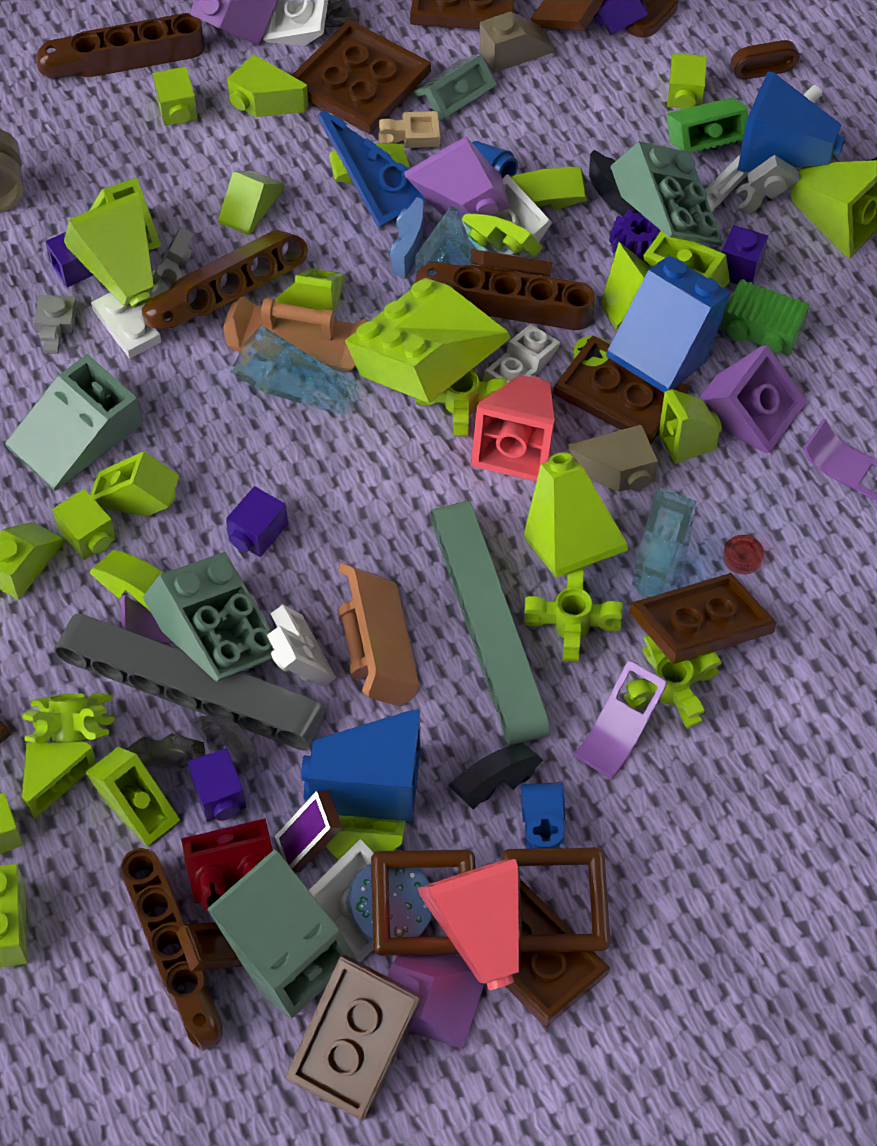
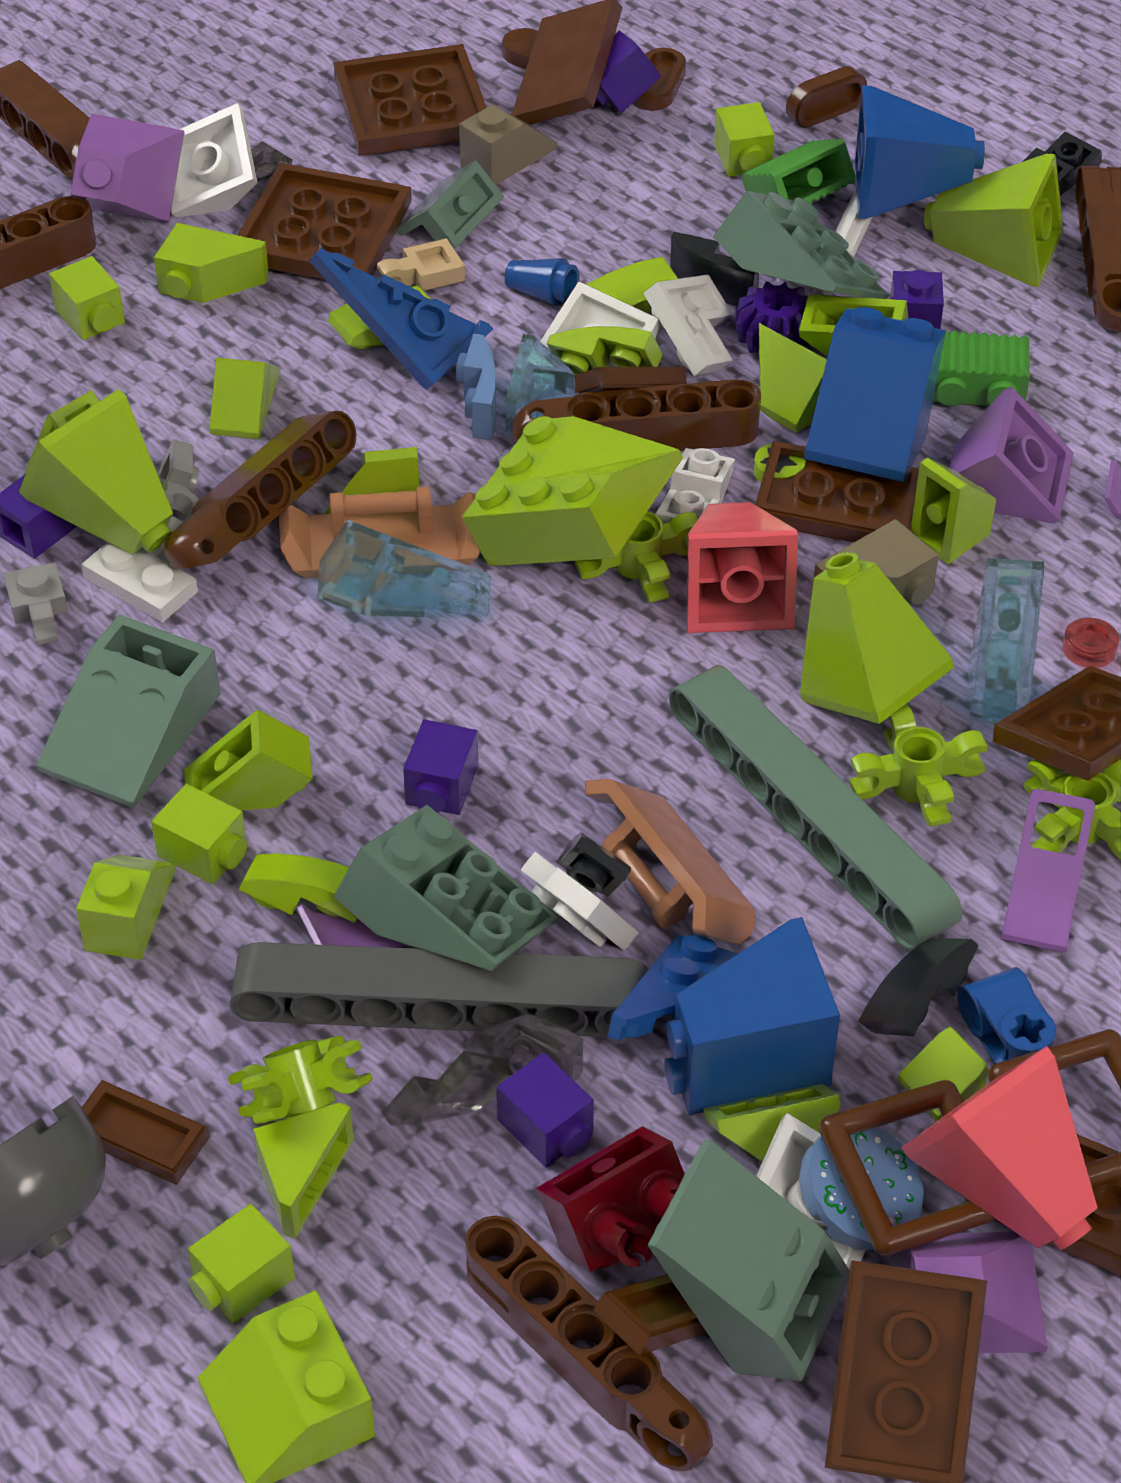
camera: 20 degrees left, 10 degrees down
(133, 794) = (430, 1156): lime slope -> none
(308, 831) = (715, 1110): tile -> none
(314, 626) = (593, 865): none -> black slope
(343, 714) = (655, 994): none -> blue wing
(460, 179) = (524, 296): medium lavender slope -> none
(485, 839) = (946, 1059): none -> lime slope
(571, 219) = (688, 314): none -> white plate
(767, 179) = (903, 217): light grey plate -> none

